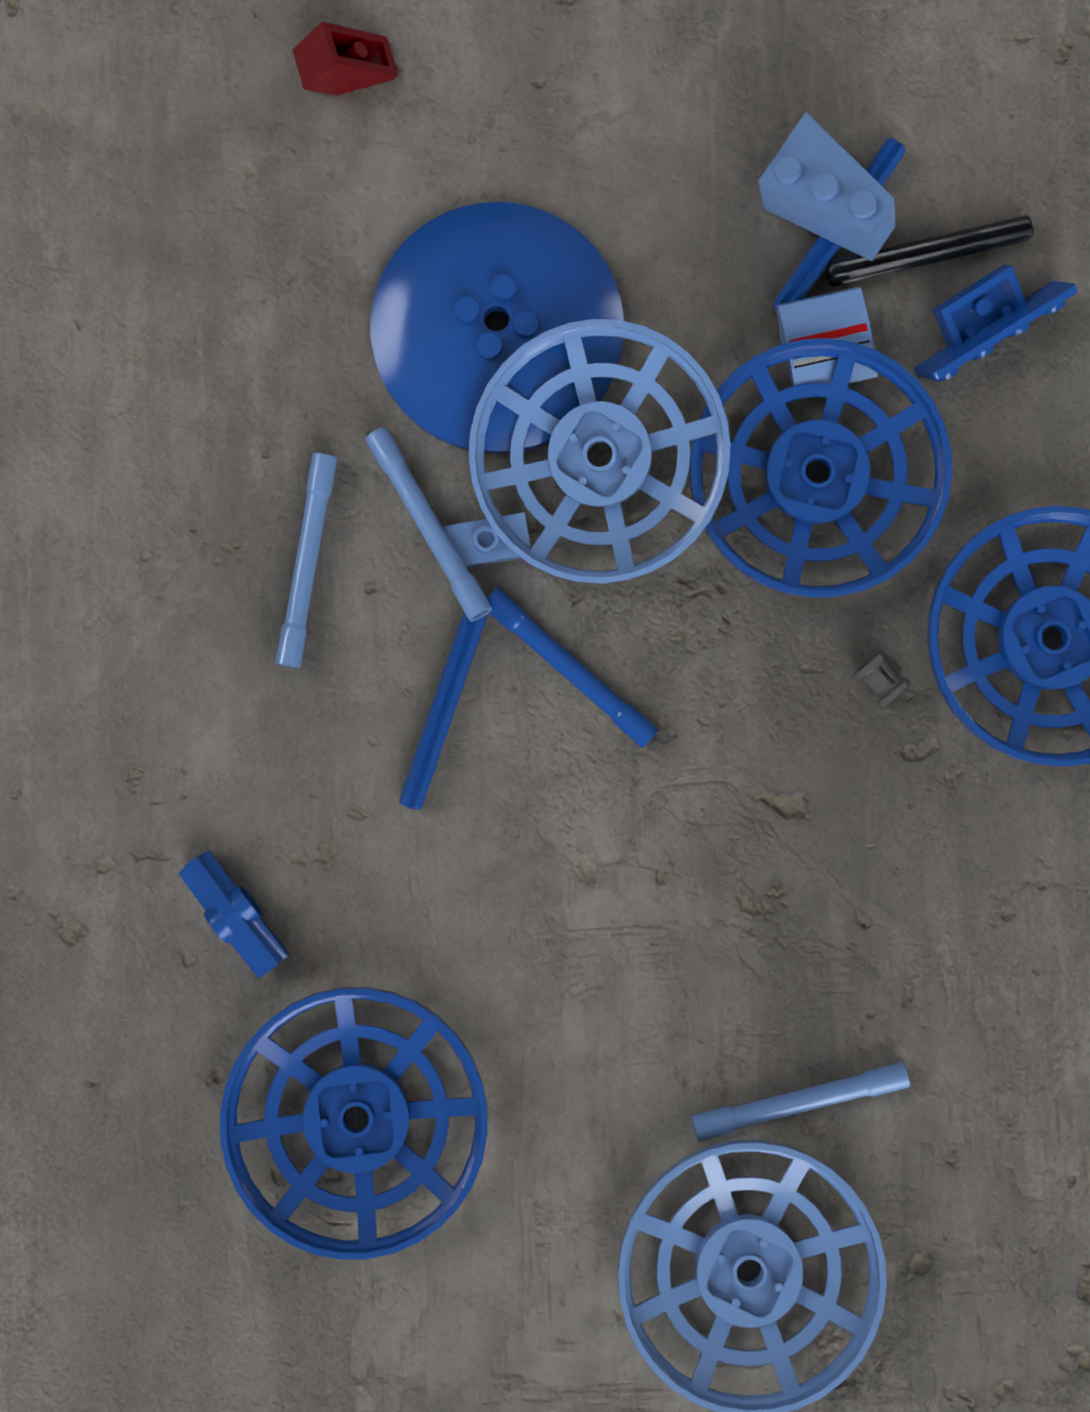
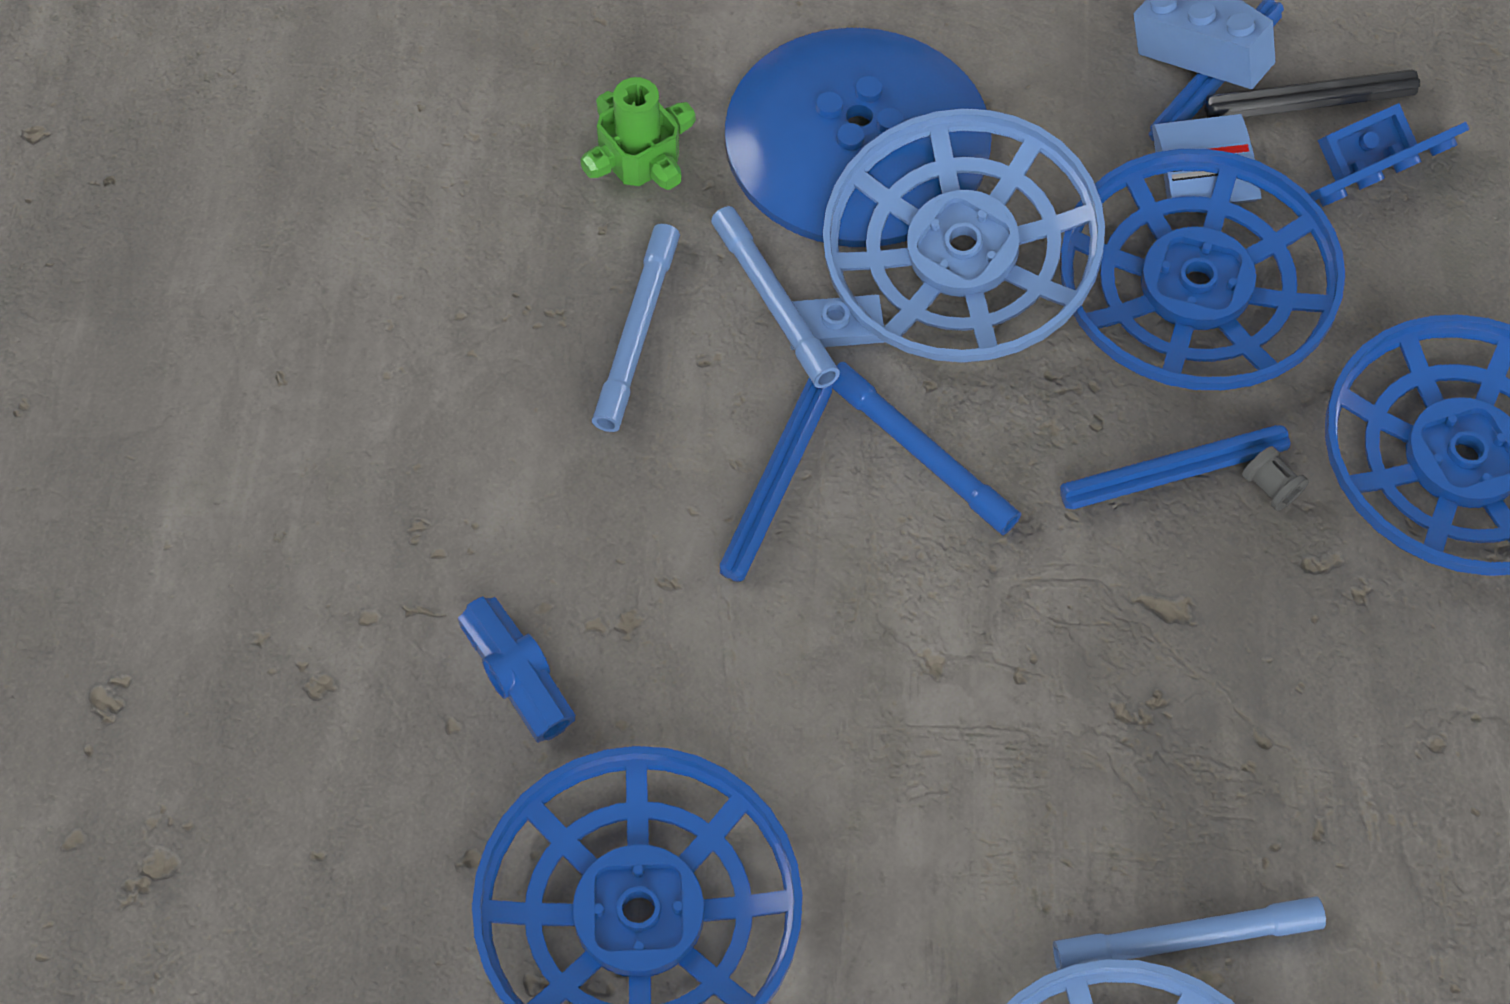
camera: 10 degrees right, 25 degrees down
(288, 356) = (638, 135): none -> bright green piece
(794, 670) = (1172, 467): none -> blue axle

